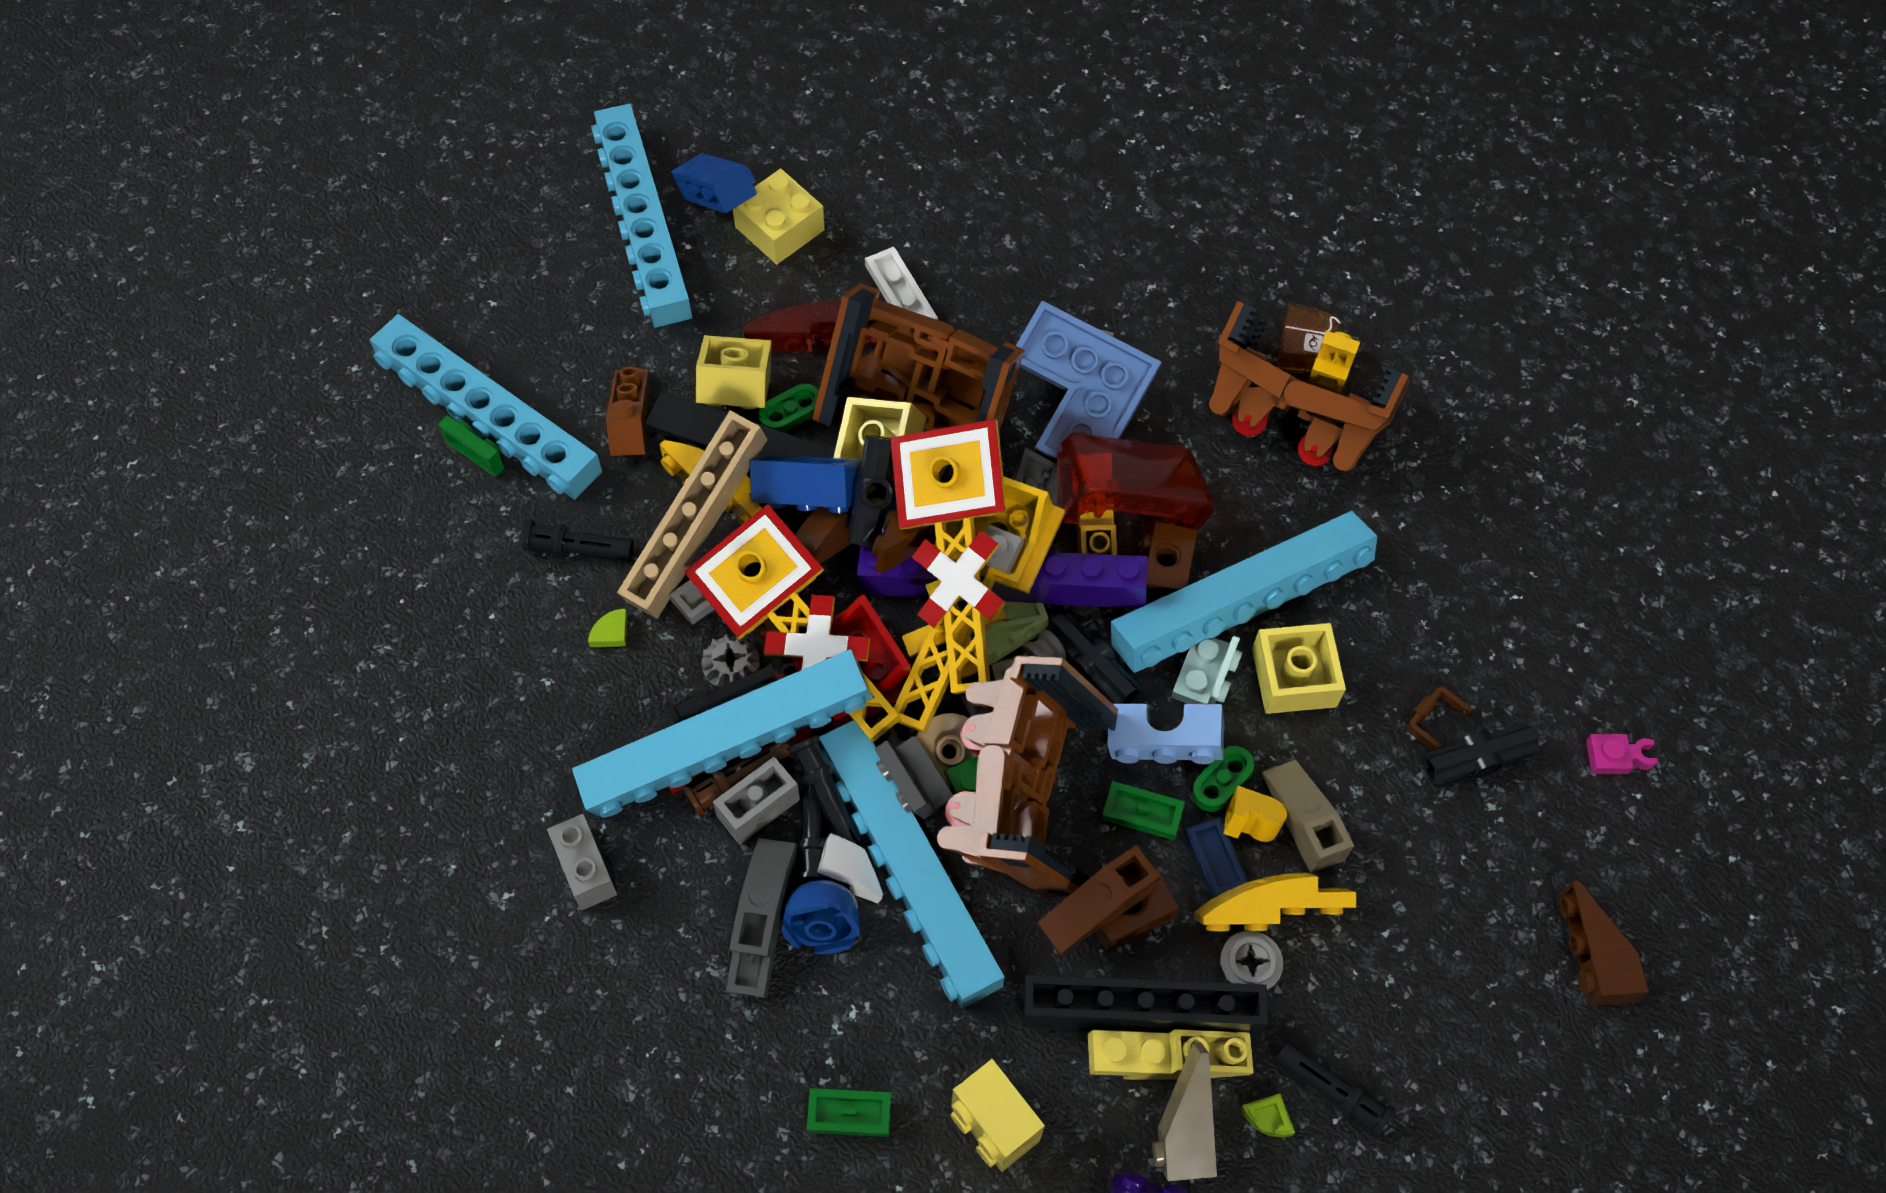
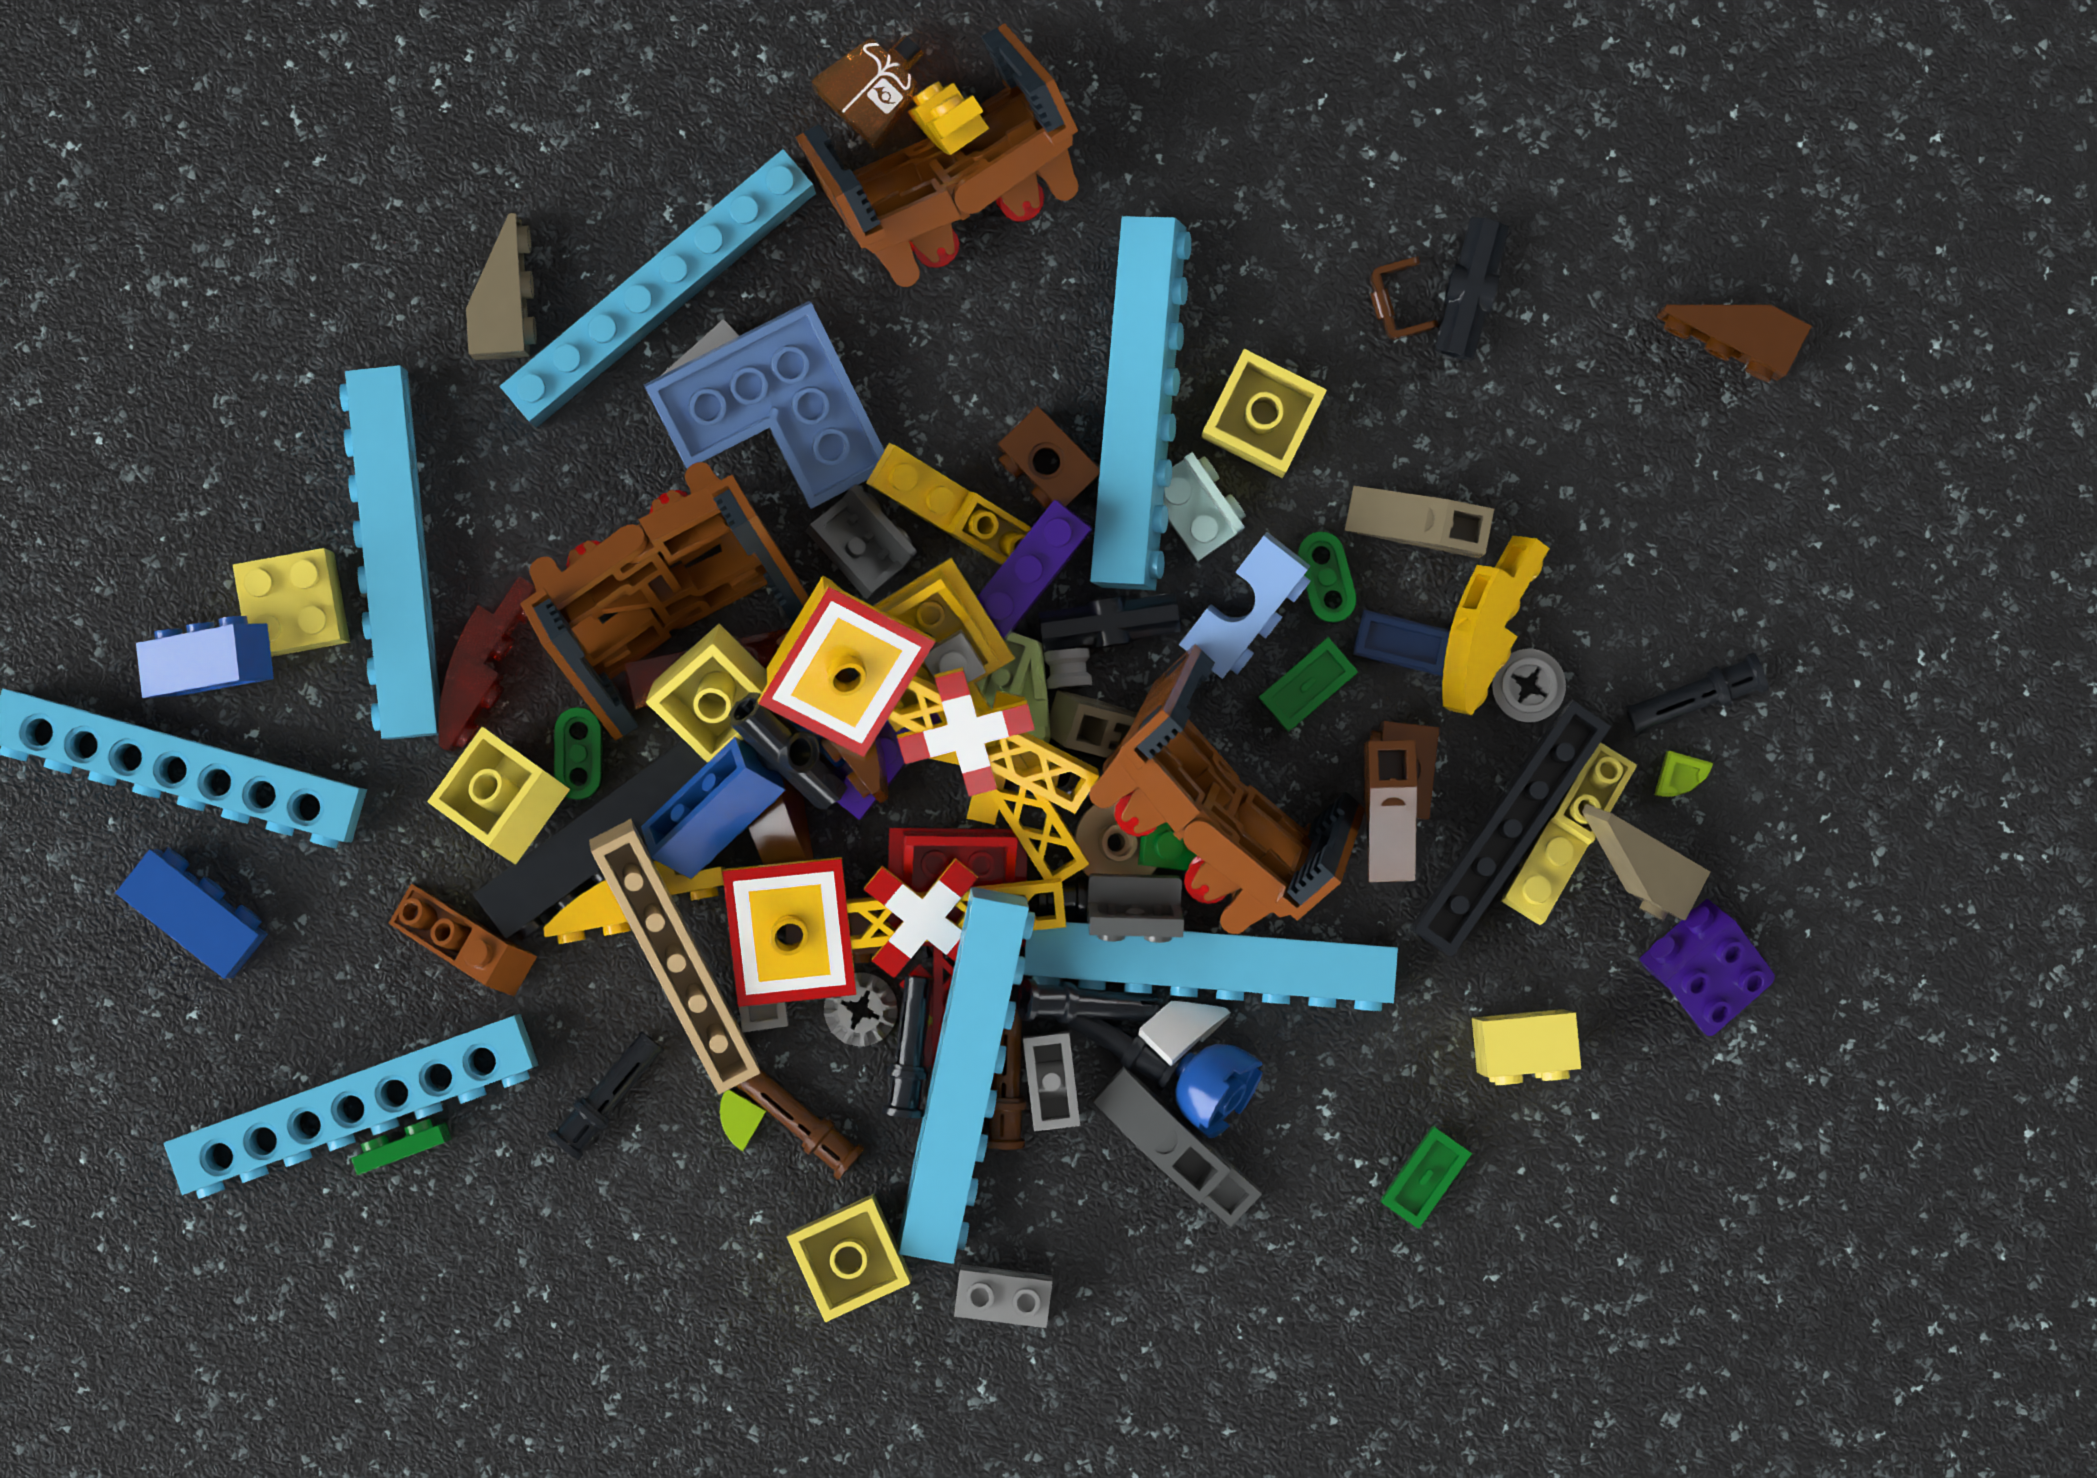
camera: 60 degrees left, 25 degrees up
(550, 741) = (849, 1257): none -> light yellow brick
(555, 264) = (192, 911): none -> blue brick
(627, 680) = (817, 1135): none -> reddish brown pin
(842, 252) = (392, 552): none -> medium azure brick
(897, 282) = (493, 522): white plate -> none
(1035, 224) = (498, 307): none -> dark tan slope
(1101, 296) = (658, 288): none -> medium azure brick
(1131, 478) = (935, 439): clear red windscreen -> none
(1254, 815) = (1386, 575): yellow leg -> none
(1616, 756) = (1557, 144): dark pink plate -> none

